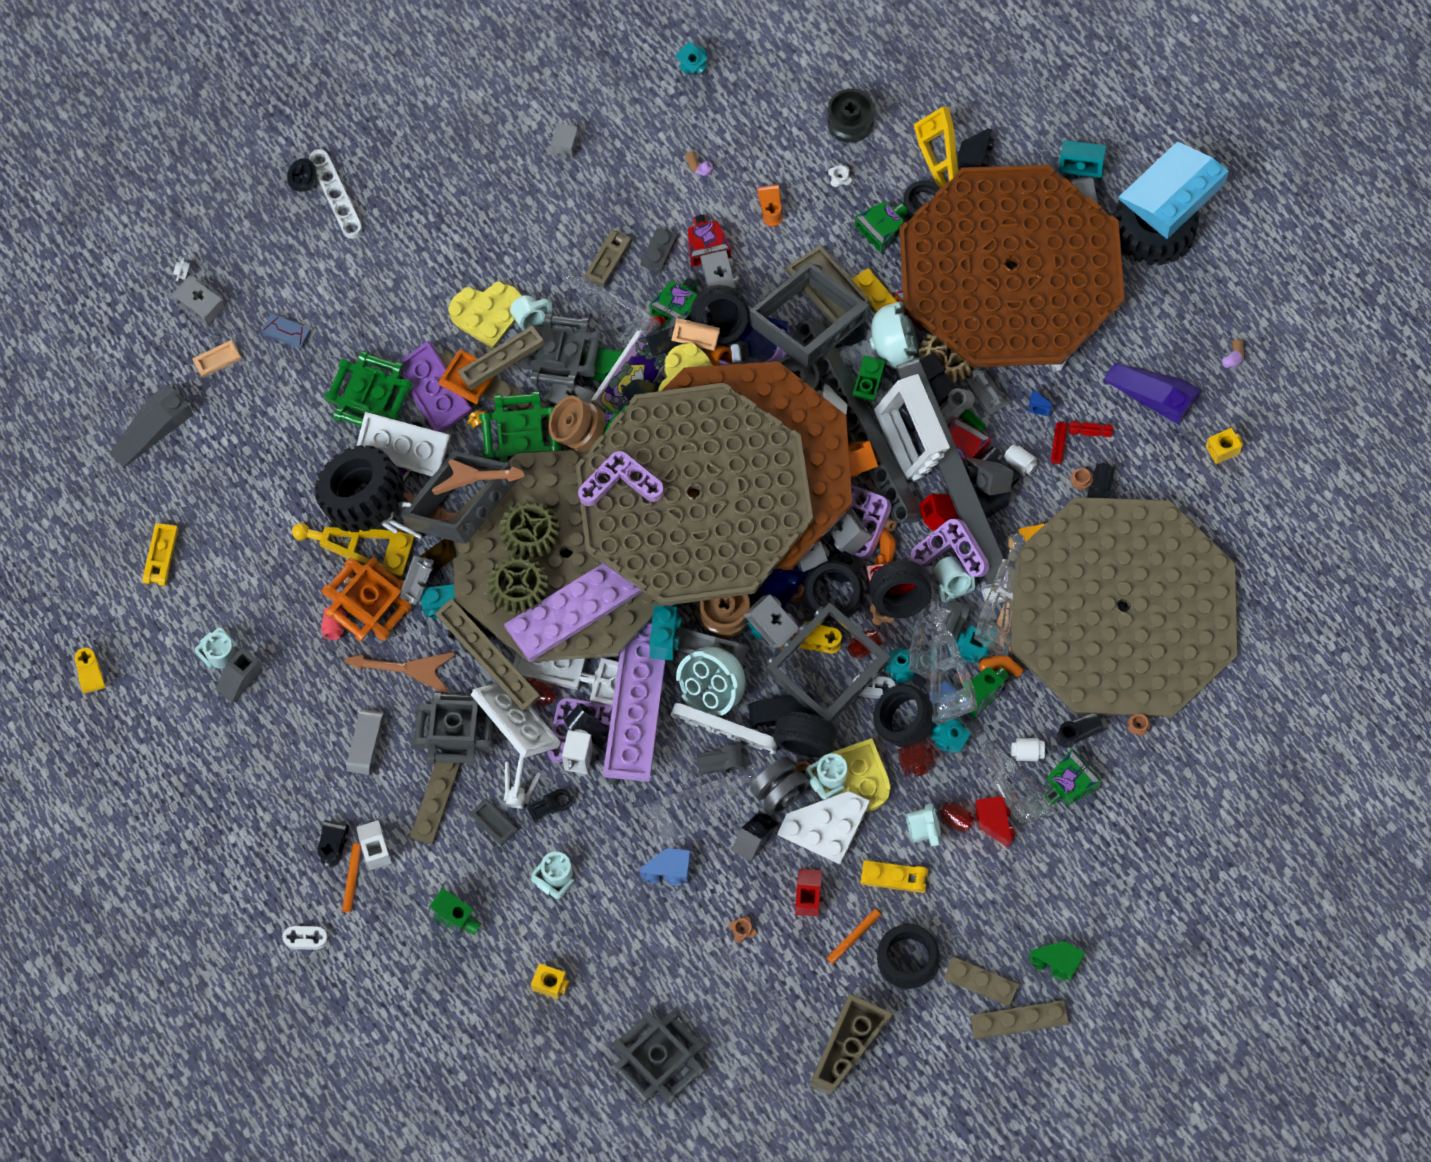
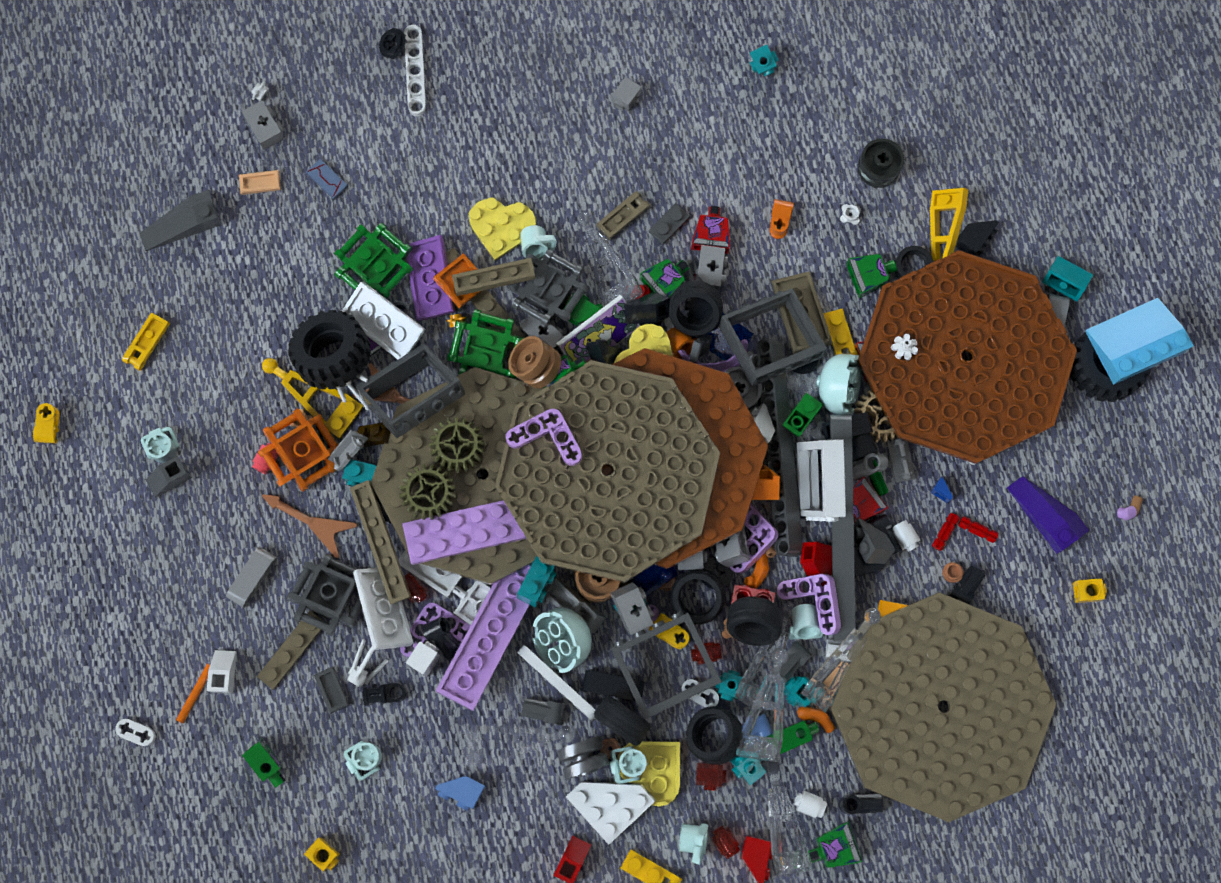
camera: 15 degrees right, 10 degrees up
(333, 840) = (190, 655): black piece -> none
(466, 475) = (421, 375): nougat piece -> none
(697, 167) = (729, 158): arm -> none
(697, 333) = (667, 319): light nougat tile -> none
(744, 922) = (508, 865): nougat plate -> none
(754, 835) = (546, 791): black slope -> none
(945, 277) = (904, 347): none -> white plant
(1138, 718) = (915, 824): nougat plate -> none

